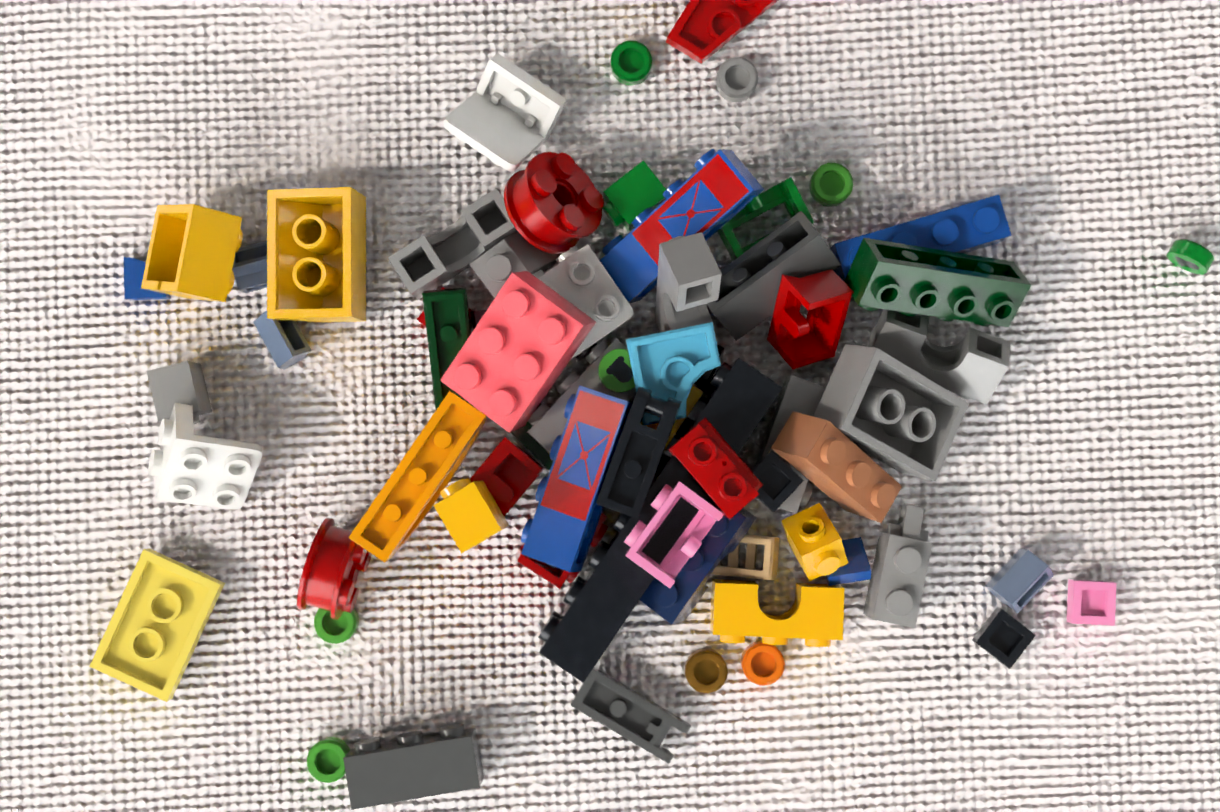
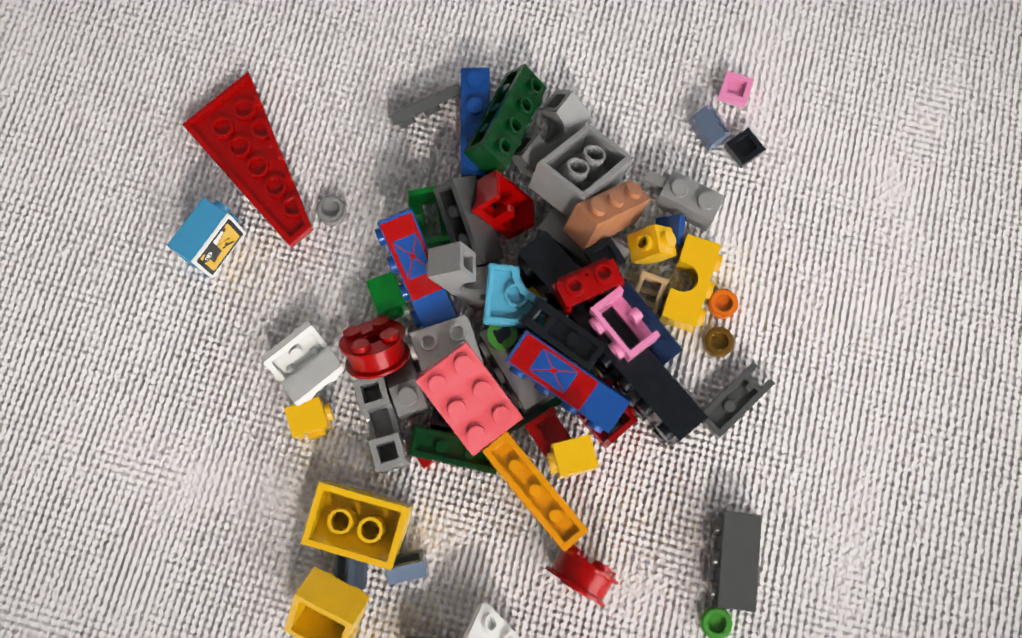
camera: 75 degrees left, 10 degrees down
(336, 630) = (623, 592): bright green tile -> none
(436, 148) = (310, 419): none -> yellow brick
(631, 62) = (297, 274): green tile -> none
(831, 184) = (420, 171): bright green tile -> none
(931, 164) = (428, 105): none -> dark grey hinge

